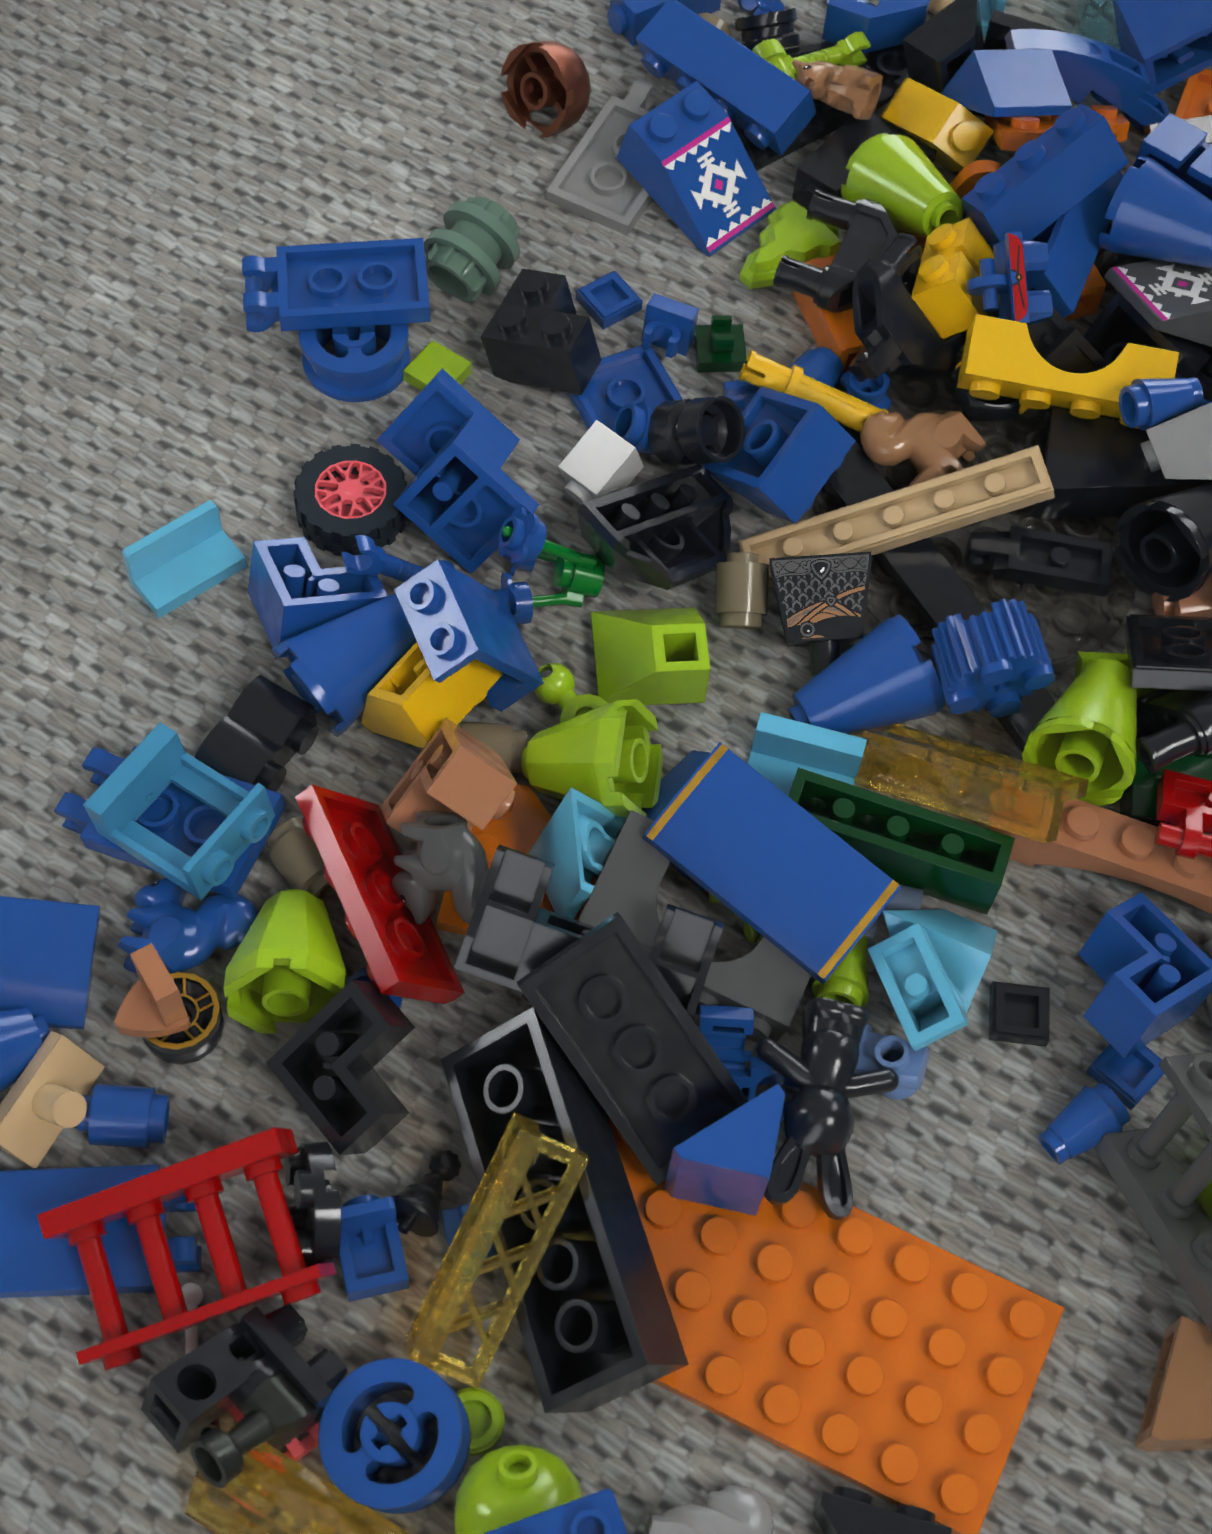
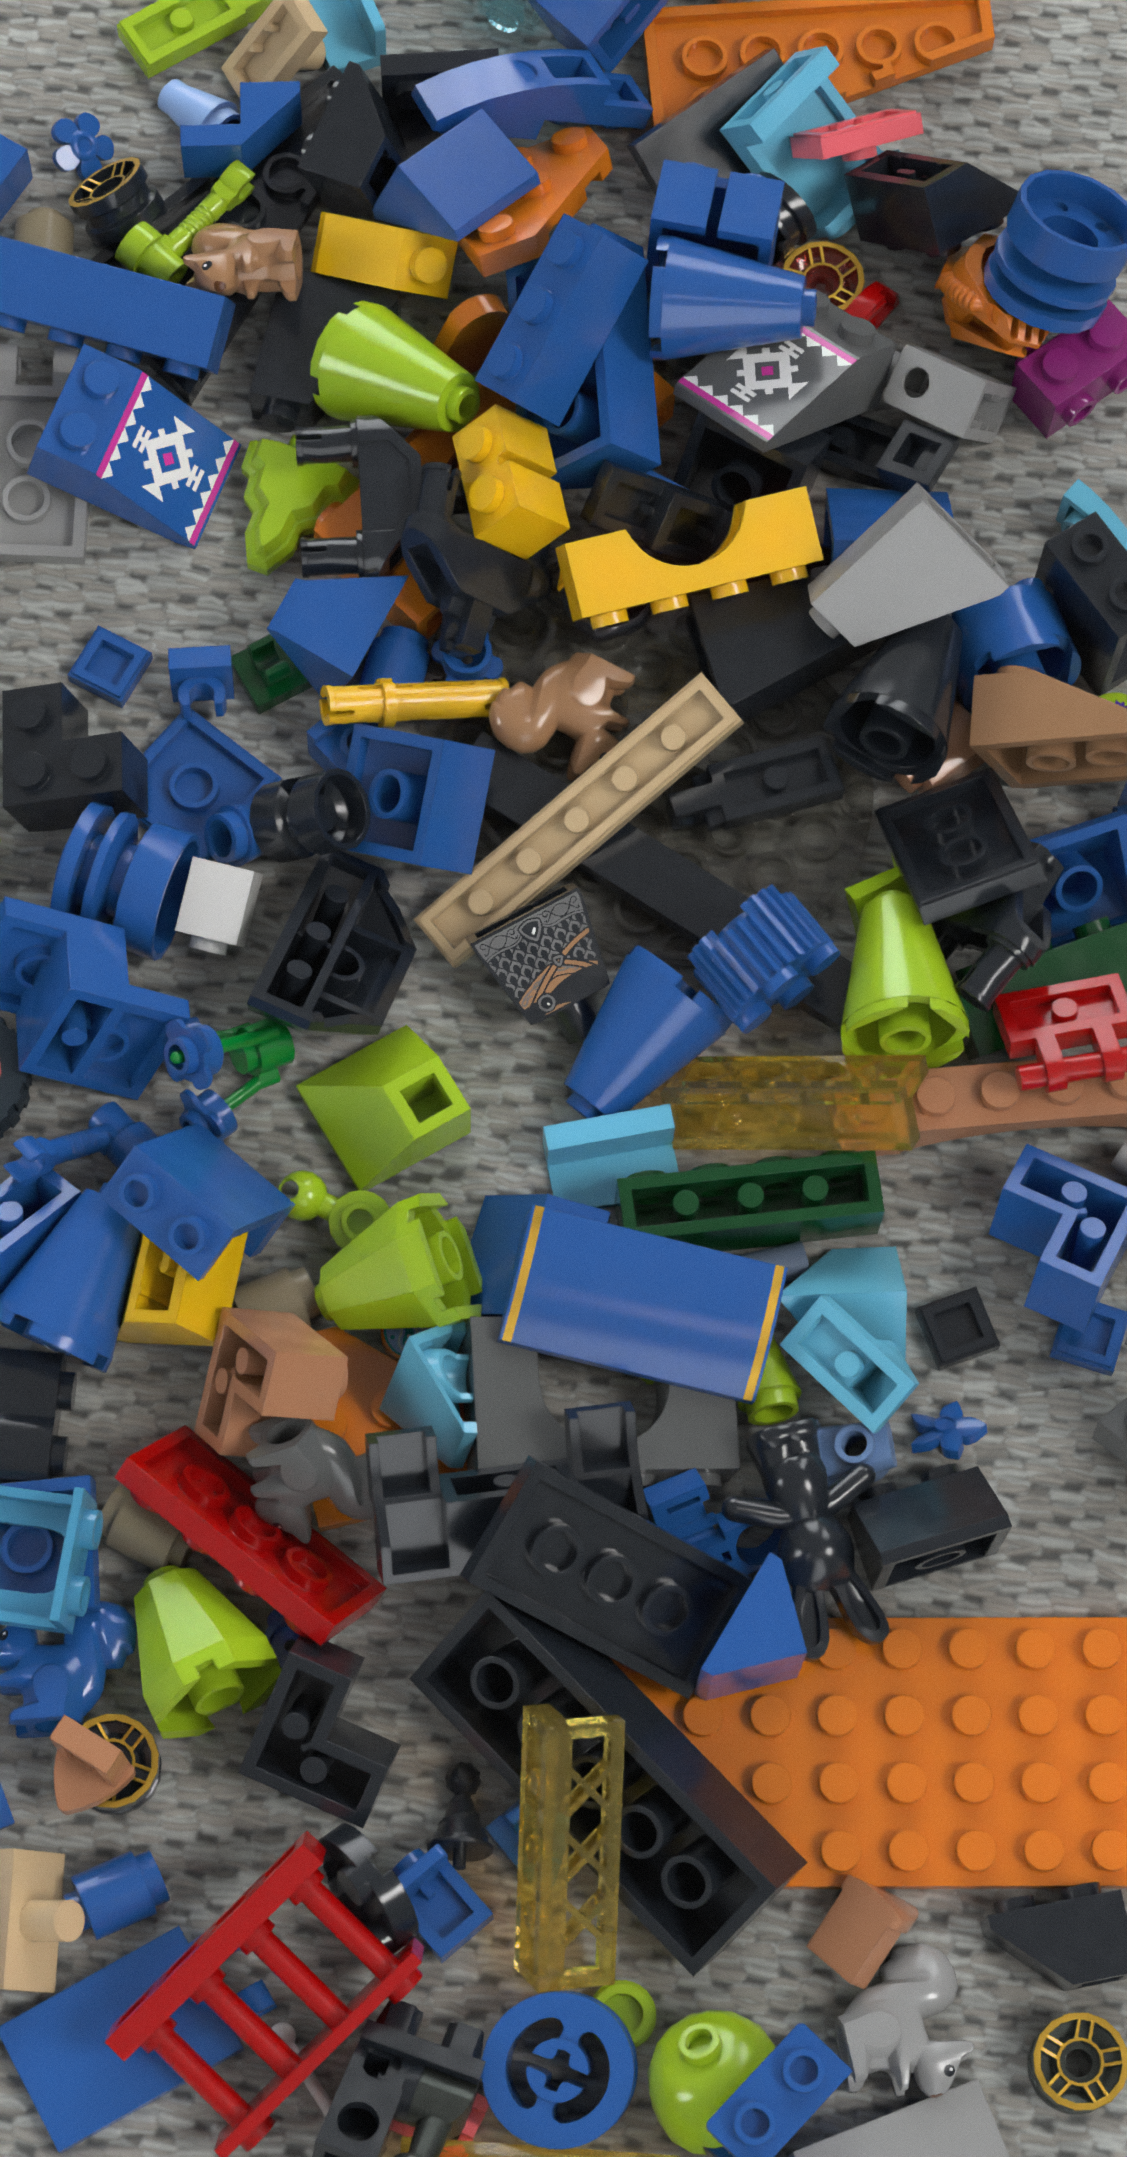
camera: 25 degrees left, 10 degrees up
(543, 411) = (111, 876): none -> blue wheel
(708, 1451) = (861, 1930): none -> nougat tile
(741, 591) = (450, 985): dark tan brick -> none
(781, 319) = (332, 623): none -> blue slope
(923, 1149) = (927, 1525): none -> black slope
(975, 1085) = (948, 1431): none -> blue plant
(1004, 281) = (599, 500): blue hips -> none
(1084, 1123) = (1071, 1417): blue cone -> none
(1158, 400) = (808, 561): blue cone -> none

